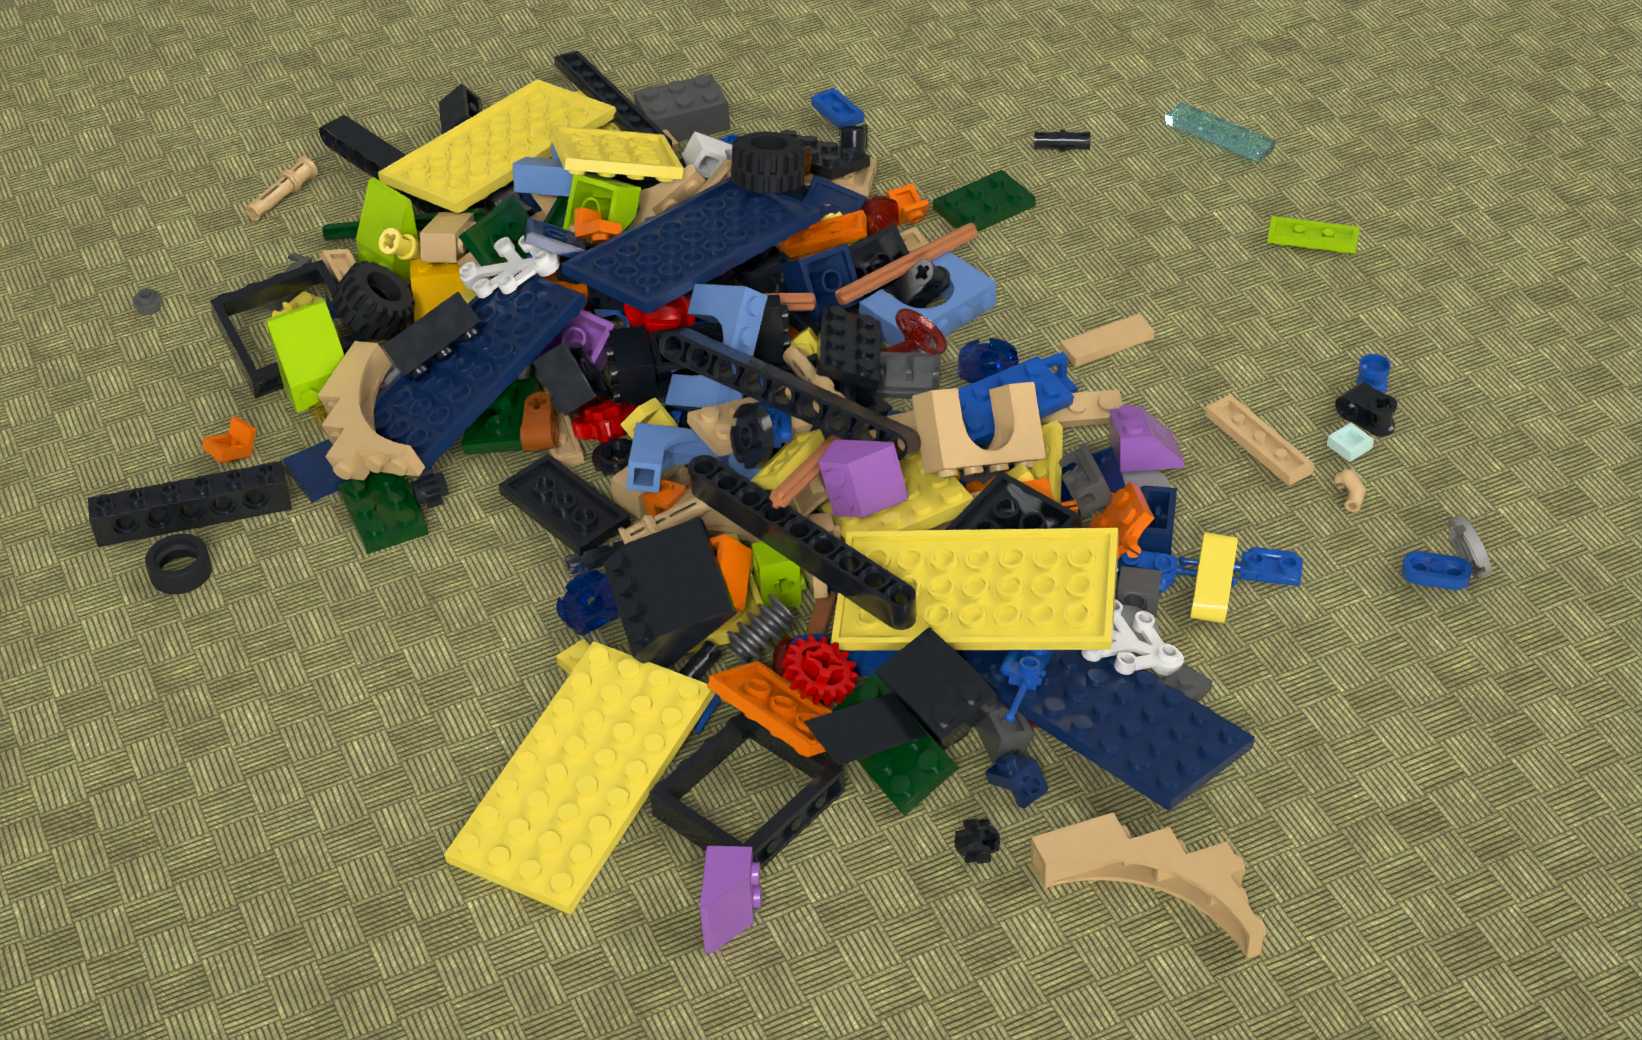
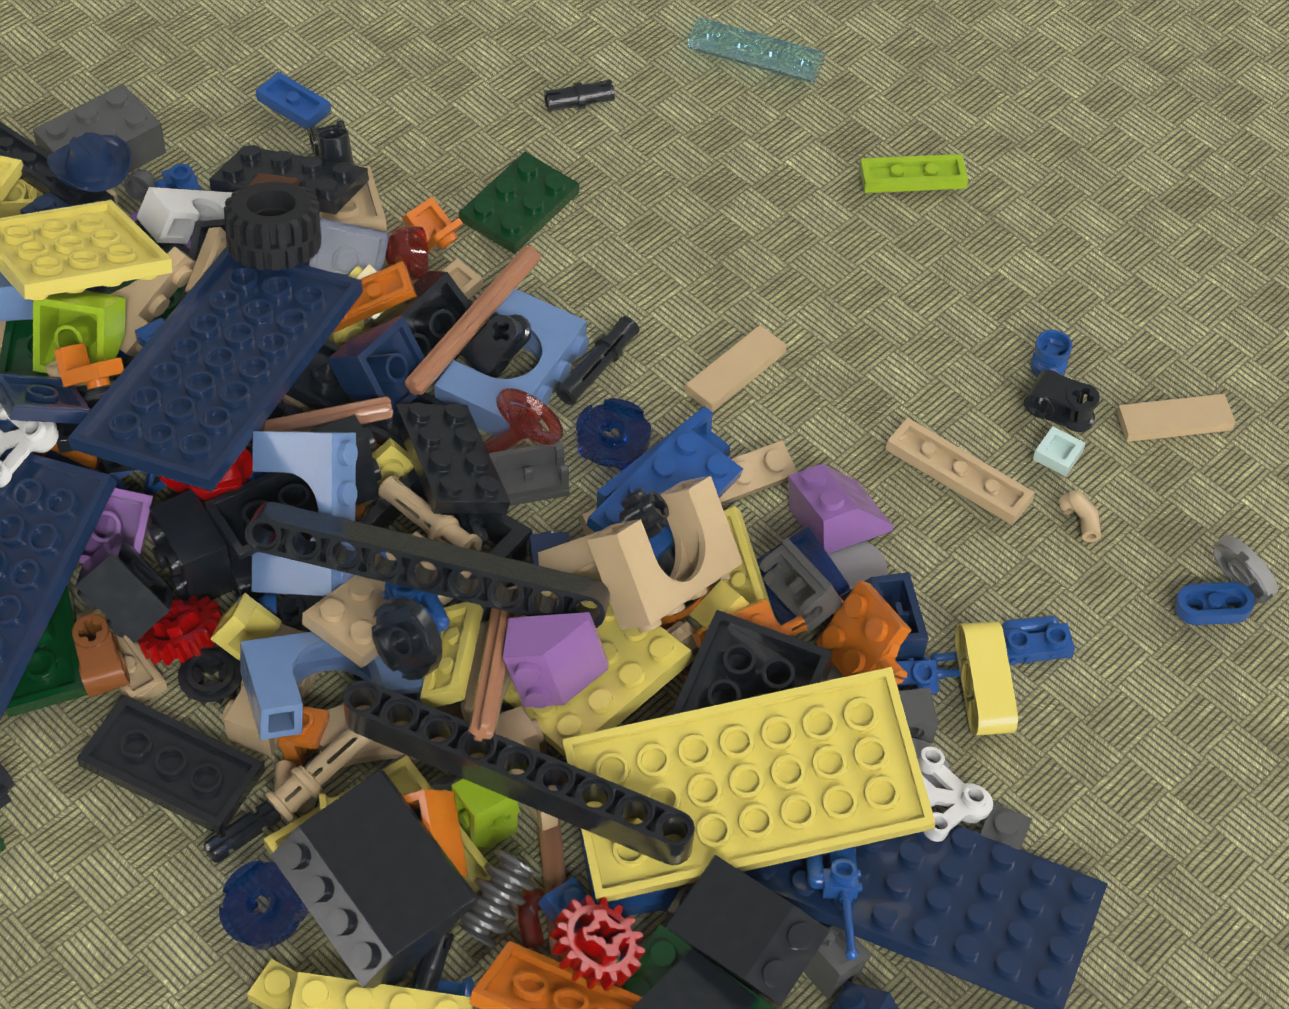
camera: 25 degrees left, 10 degrees up
(663, 113) = (91, 162): none -> dark blue hat
(975, 399) = (649, 508): none -> black gear
(998, 313) = (607, 350): none -> black pin
(1464, 440) = (1175, 417): none -> tan tile

